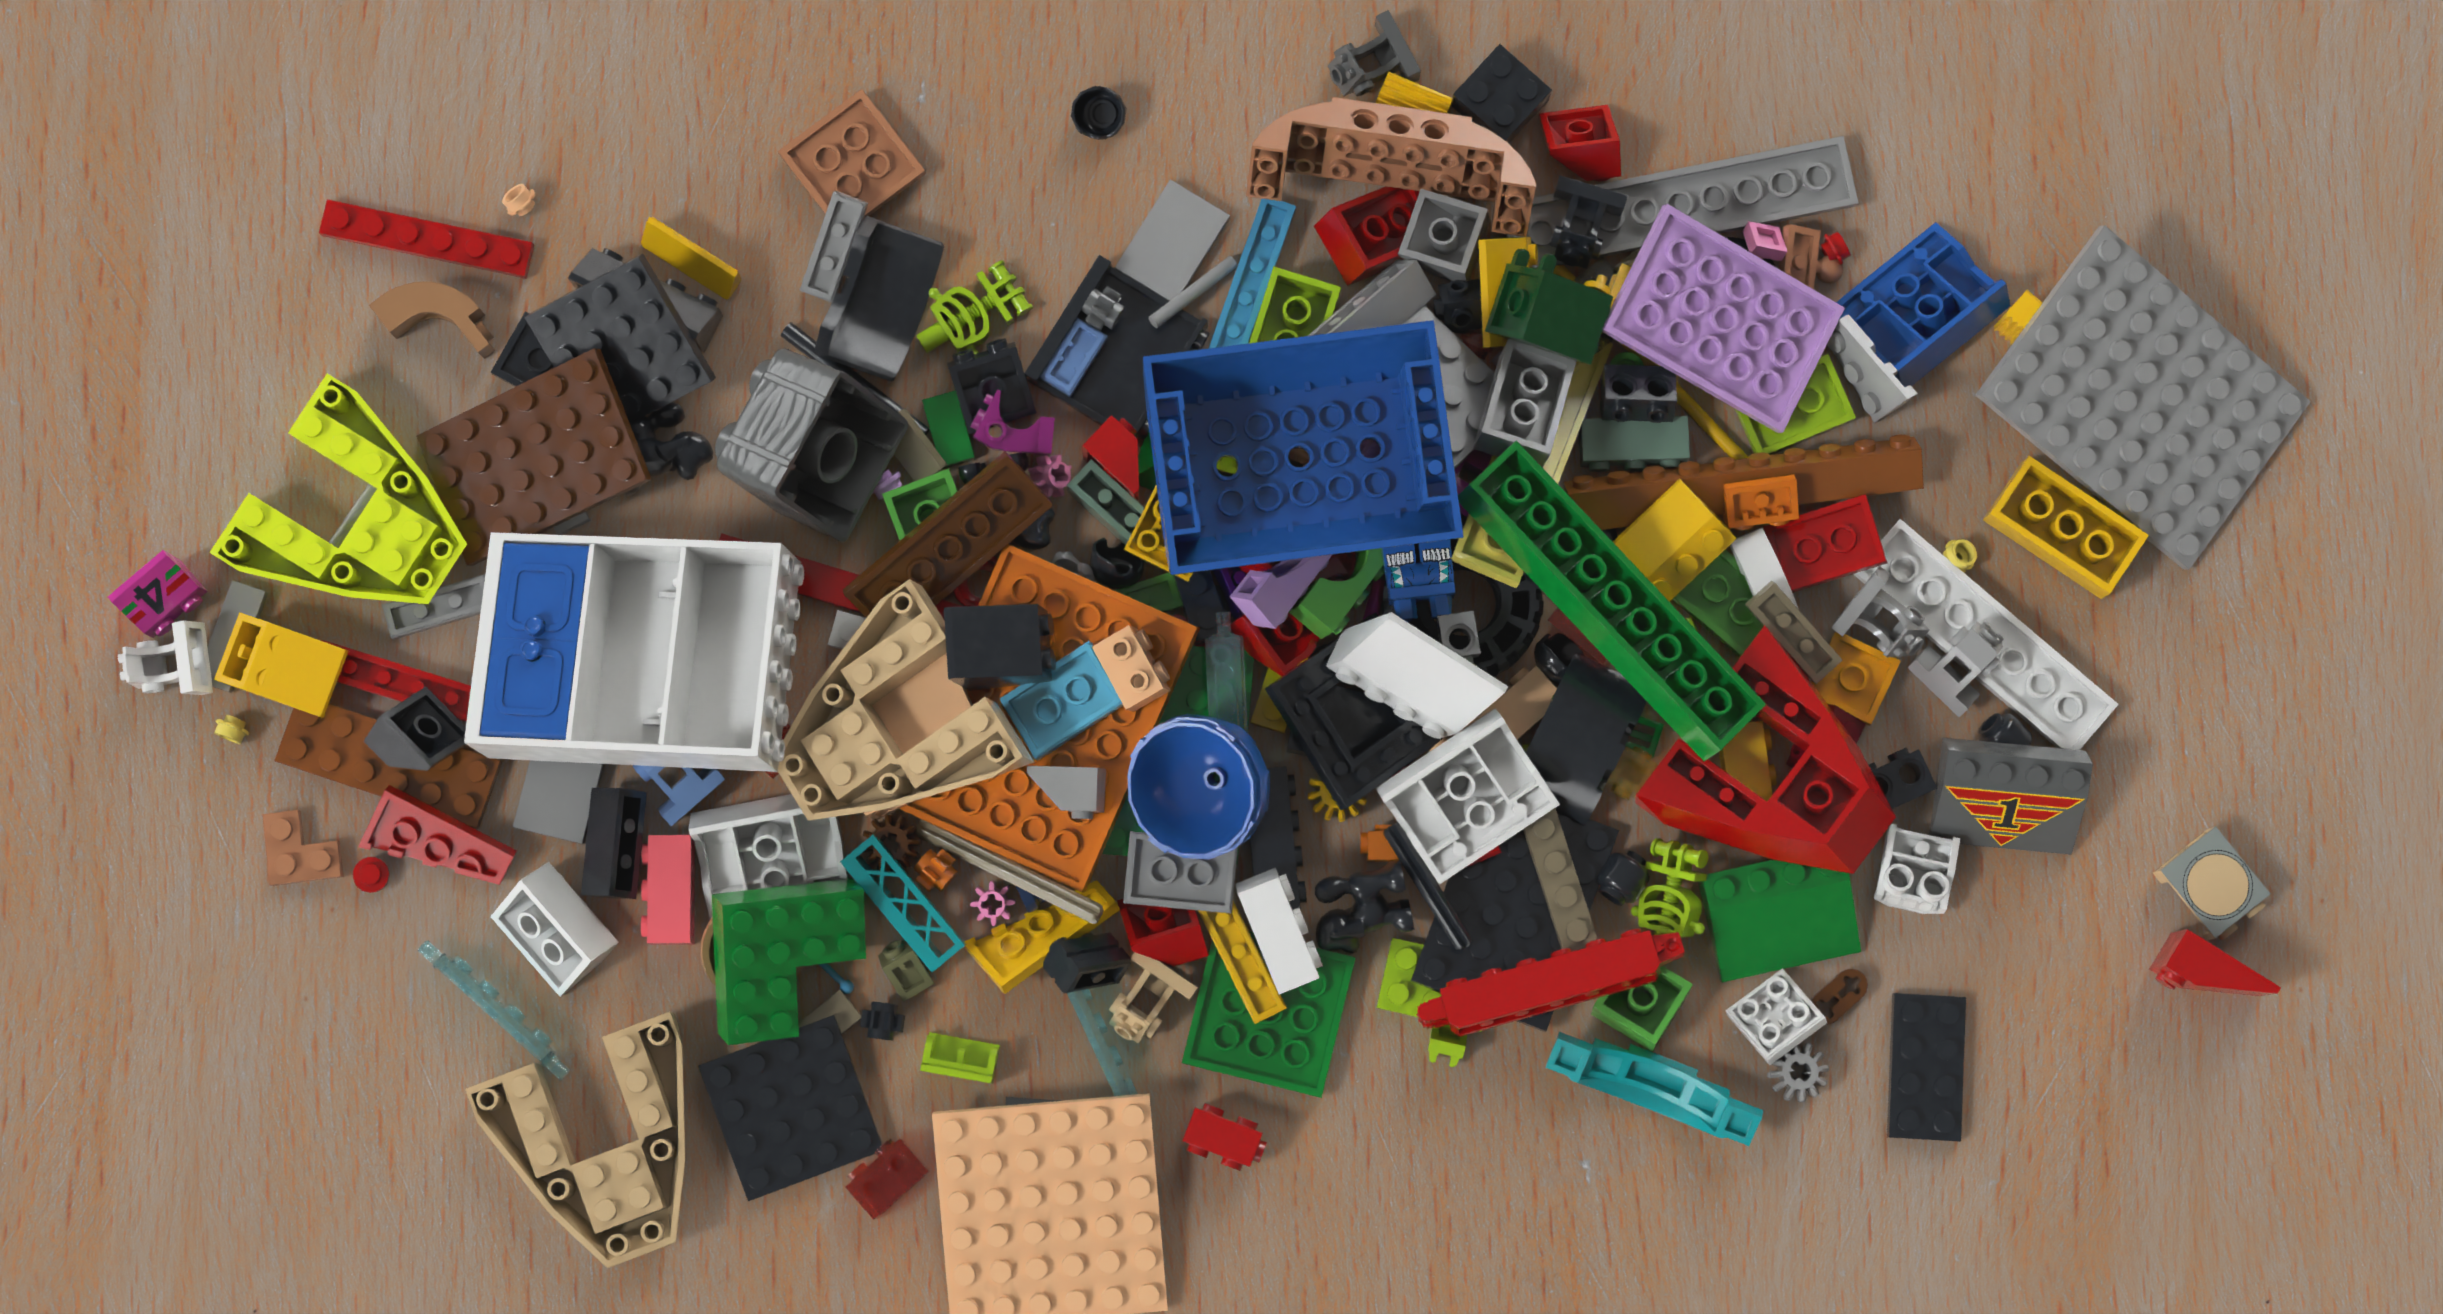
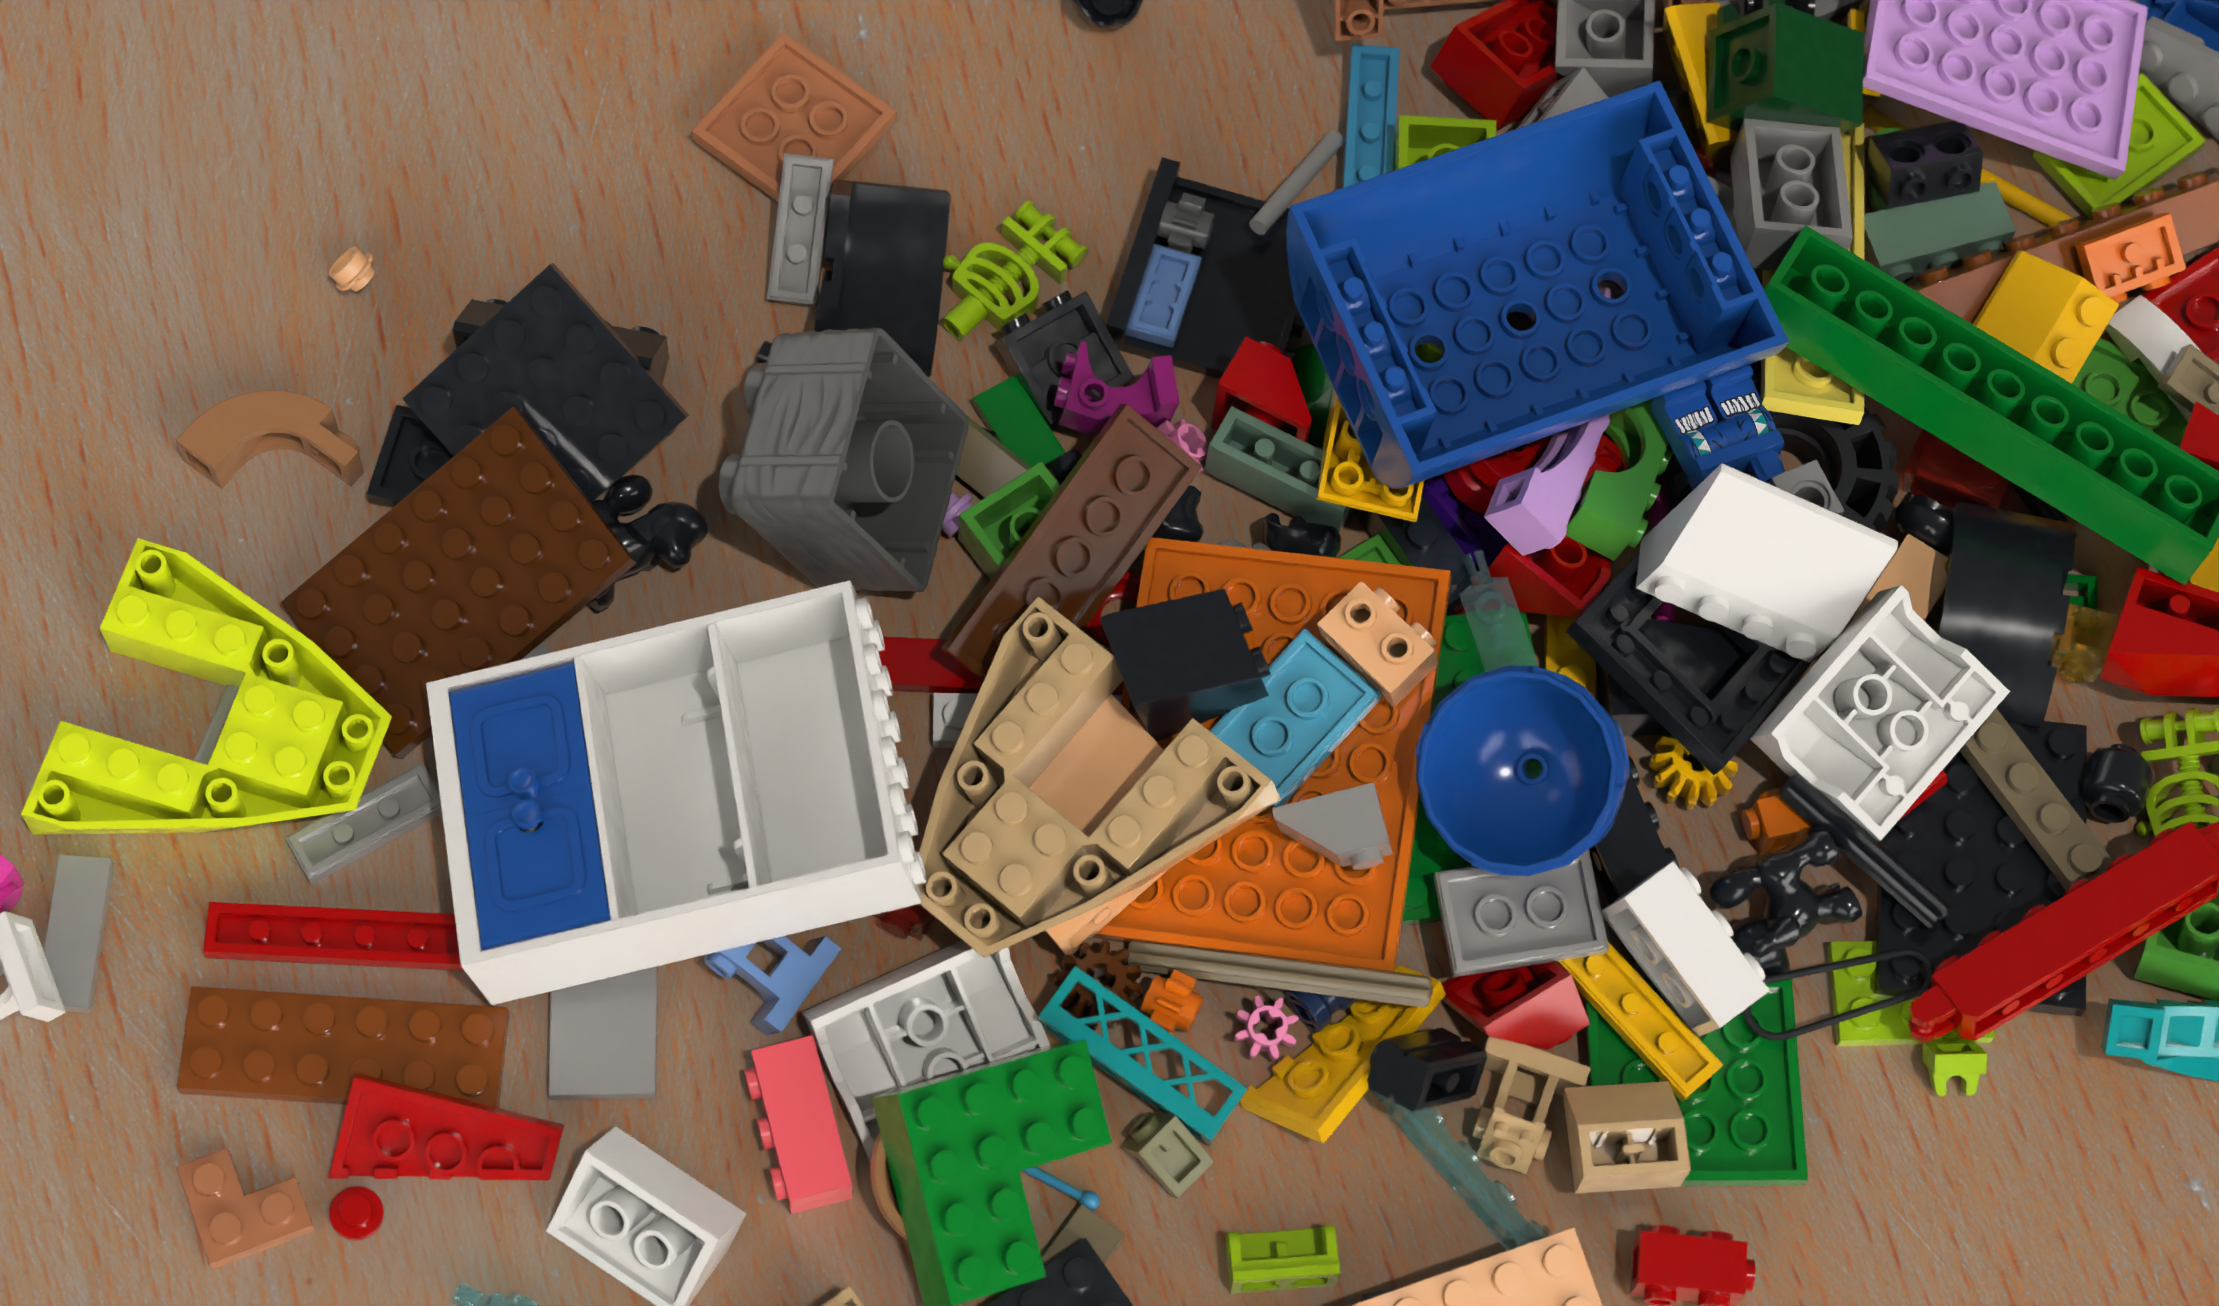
camera: 20 degrees left, 15 degrees down
(231, 729) = (103, 1059): light yellow plate -> none
(281, 665) = (159, 944): yellow slope -> none
(417, 733) = (379, 988): black slope -> none
(426, 239) = (233, 349): red plate -> none
(613, 843) = (703, 1077): black brick -> none
(690, 258) = (617, 290): yellow slope -> none
(882, 1021) = (1157, 1230): black gear -> none
(1172, 241) = (1249, 129): light grey tile -> none
(1204, 1039) = (1625, 1137): none -> tan slope
(1382, 959) = (1850, 1014): none -> black piece

